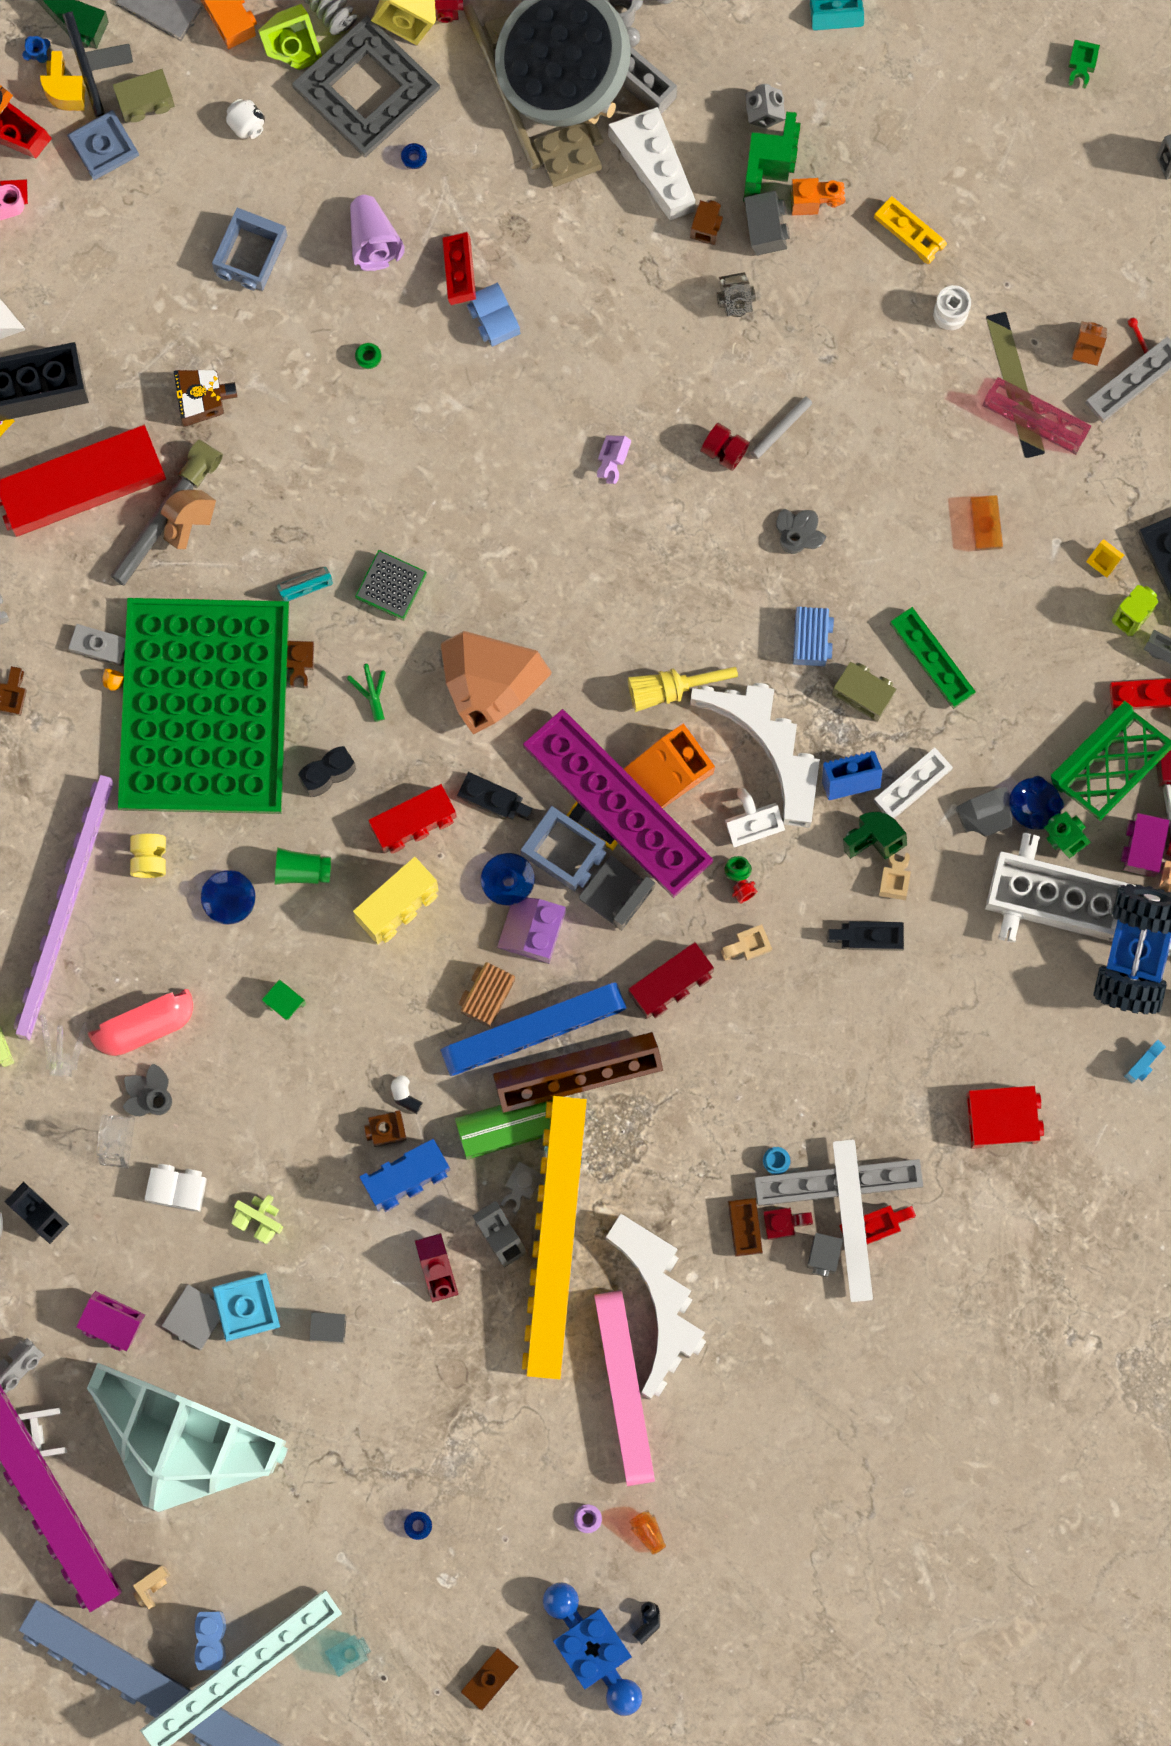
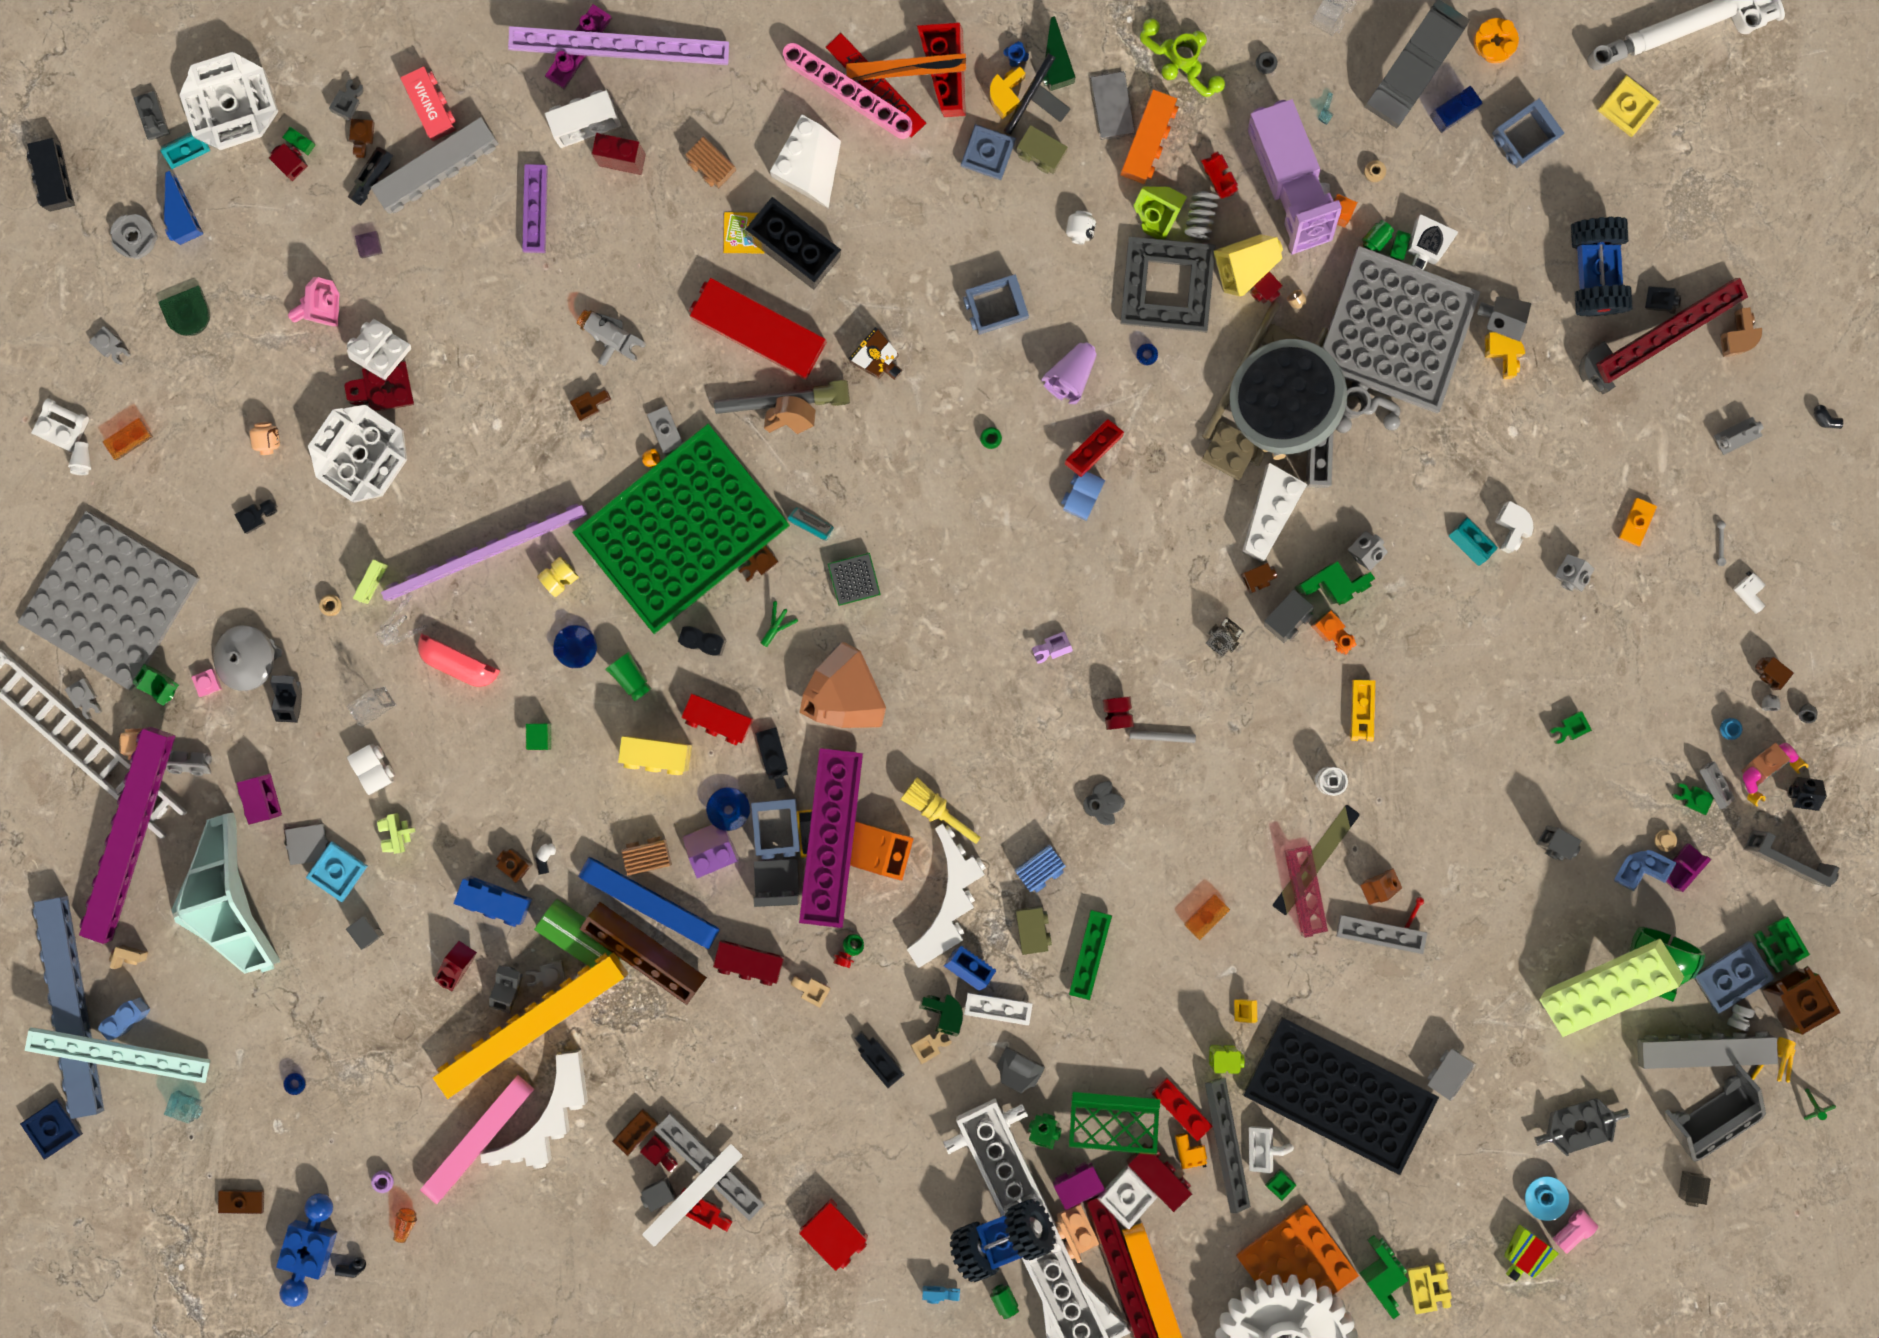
camera: 55 degrees right, 10 degrees up
(145, 1090) = (416, 697): dark grey plate -> none
(754, 822) = (890, 930): white plate -> none
(776, 1160) = (692, 1117): dark azure plate -> none
(1035, 802) = (1049, 1094): clear blue dish -> none

